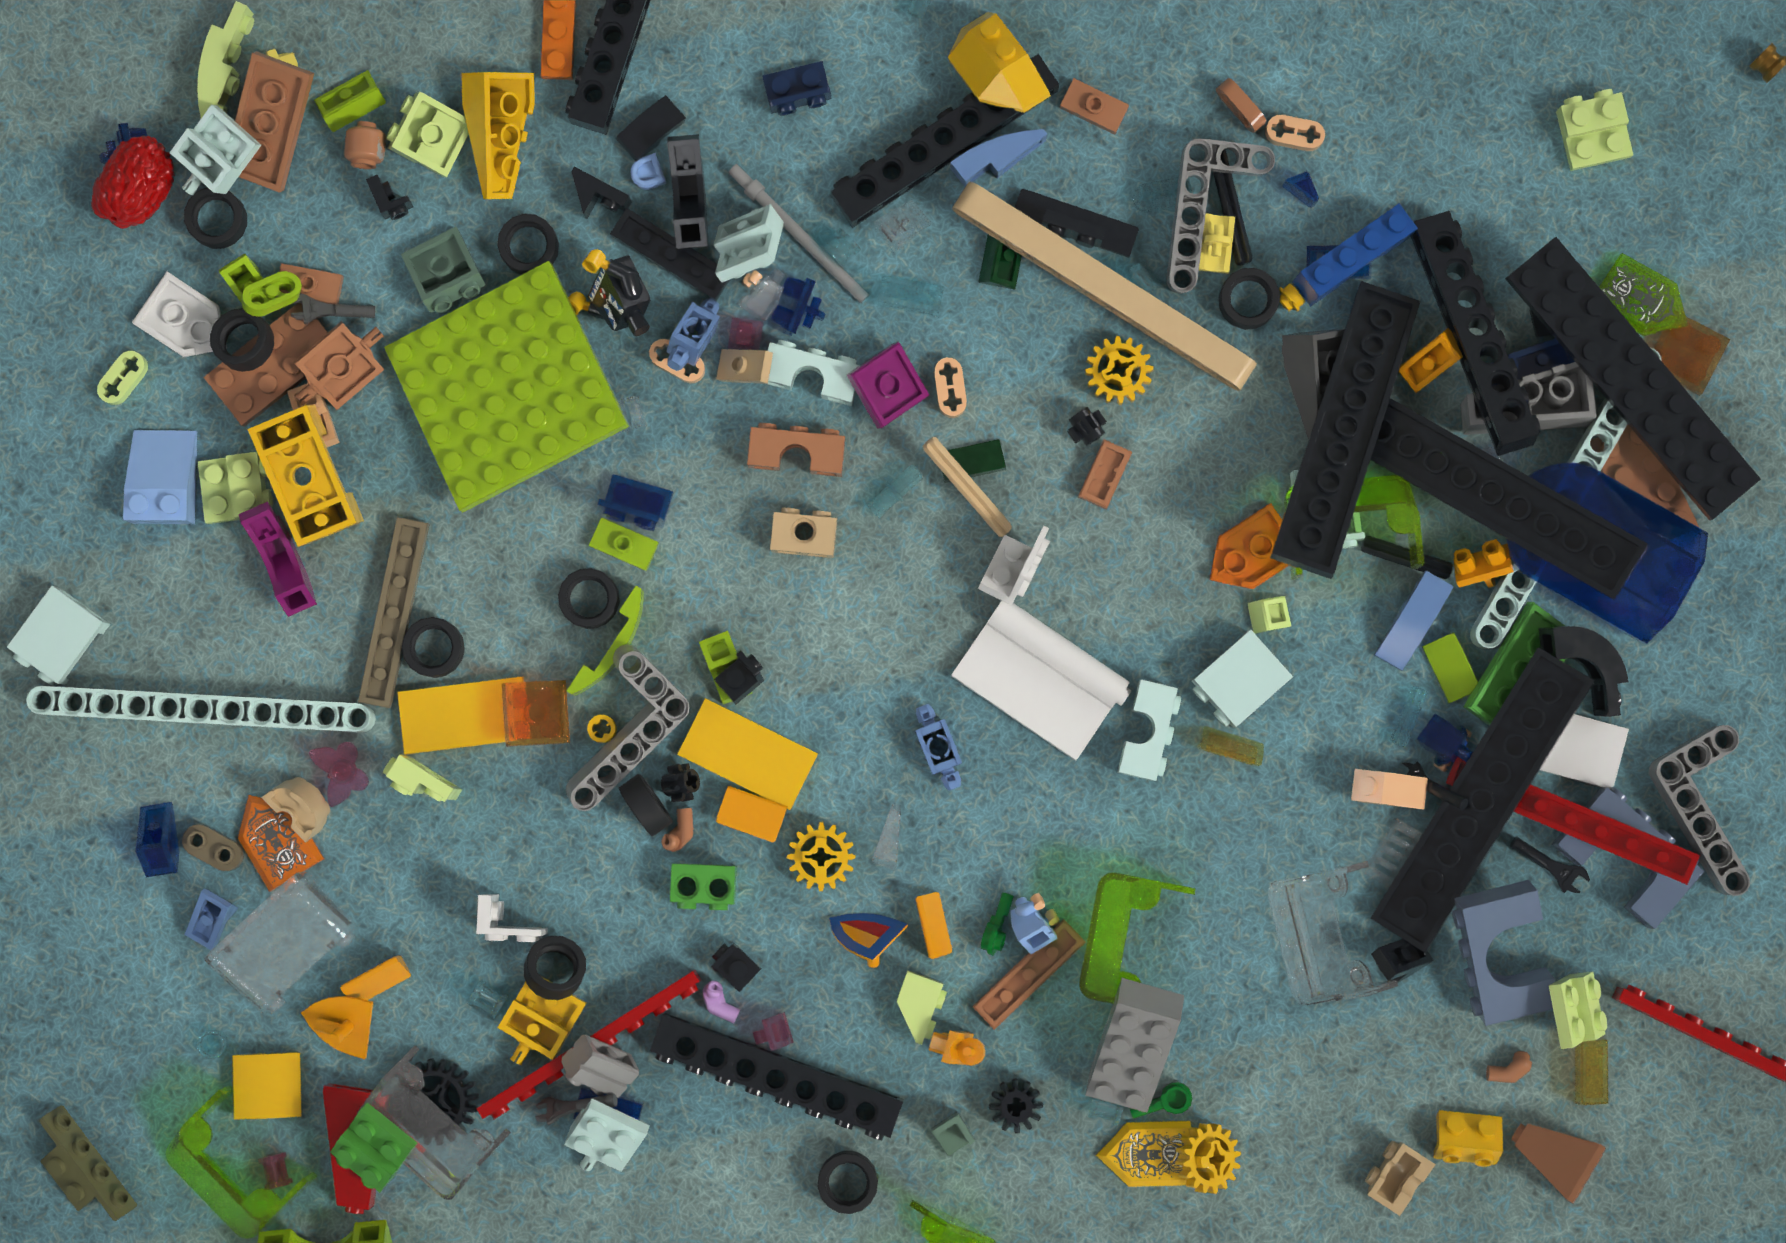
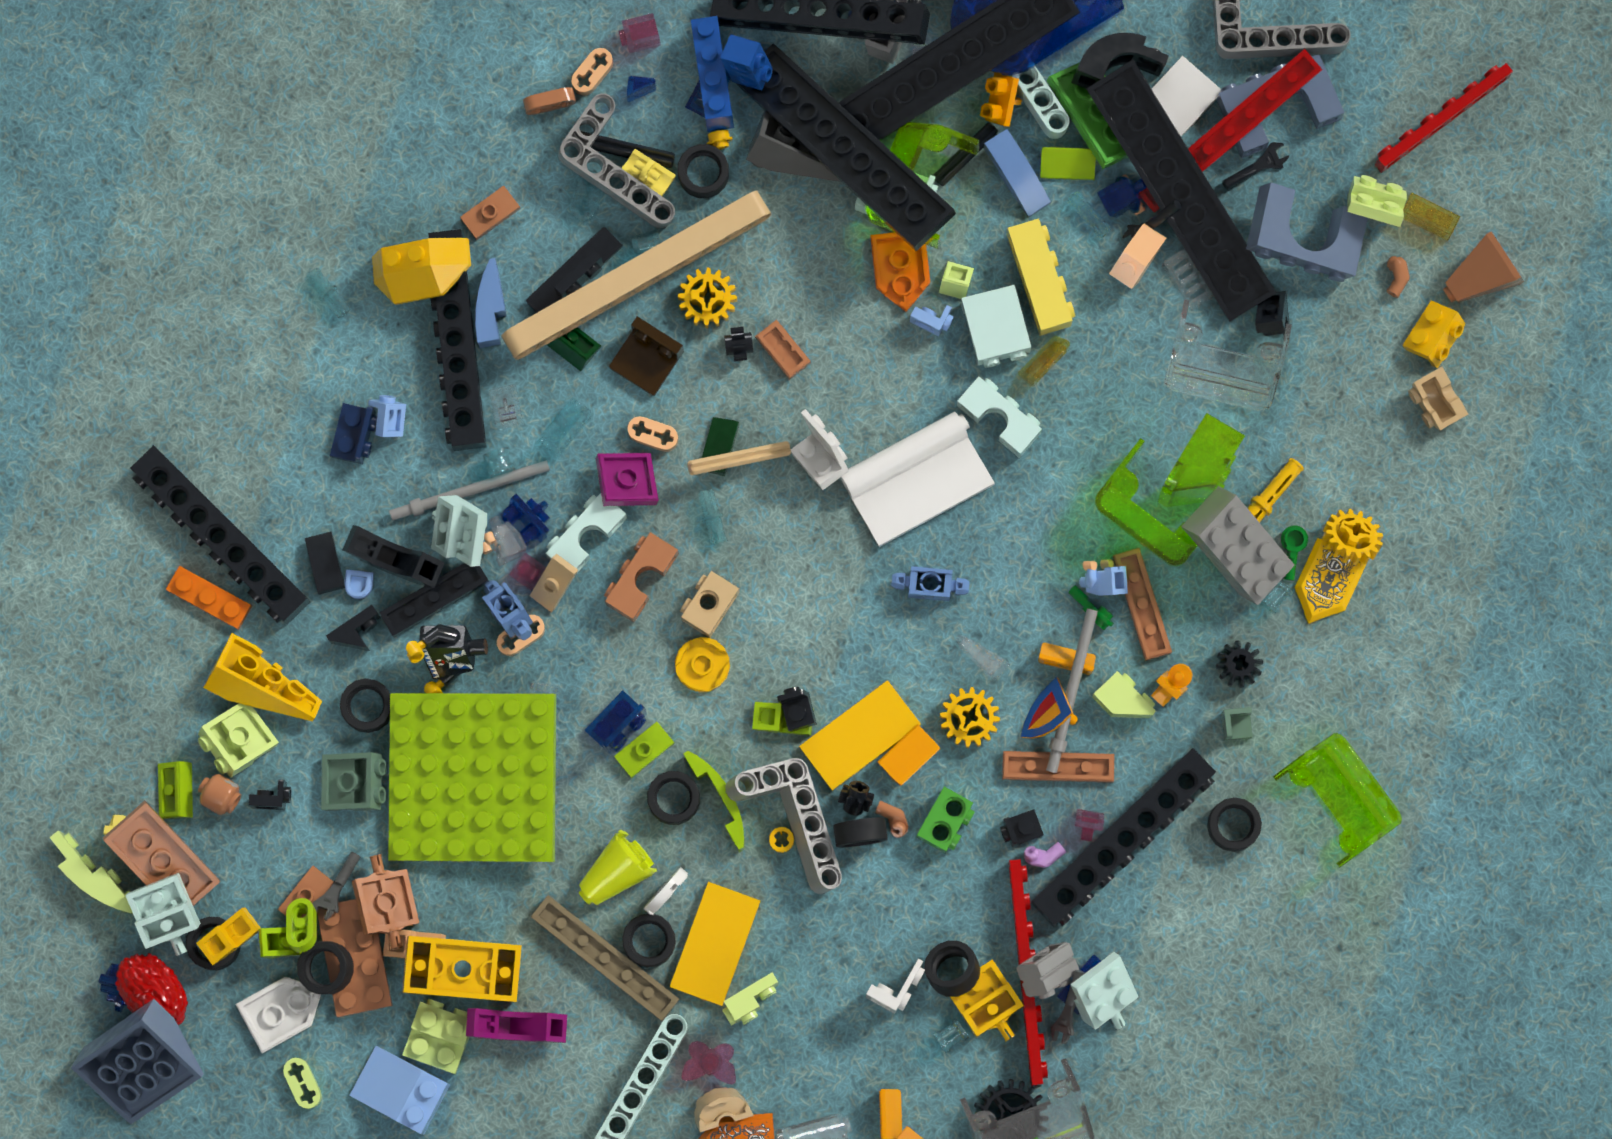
camera: 65 degrees left, 5 degrees down
(54, 204) = (139, 1062): none -> sand blue slope
(225, 228) = (228, 936): none -> yellow slope
(486, 638) = (665, 891): none -> white tile
(487, 579) = (616, 870): none -> neon yellow cone
(535, 713) = (743, 884): clear orange plate -> none
(741, 567) = (694, 666): none -> yellow tile
(817, 971) = (1072, 767): none -> nougat tile
(831, 114) = (389, 416): none -> light blue bracket
(839, 960) = (1058, 743): none -> light grey bar
(1024, 340) = (647, 357): none -> dark brown bracket
(1195, 1047) = (1262, 504): none -> yellow pin
(1200, 967) = (1202, 464): none -> clear neon green windscreen
(1210, 607) = (927, 320): none -> light blue bracket
(1315, 698) = (1040, 277): none -> light yellow brick
(1359, 160) = (639, 33): none -> clear pink brick
(1383, 282) = (746, 62): none -> blue brick
(1431, 361) = (824, 58): light orange slope -> none

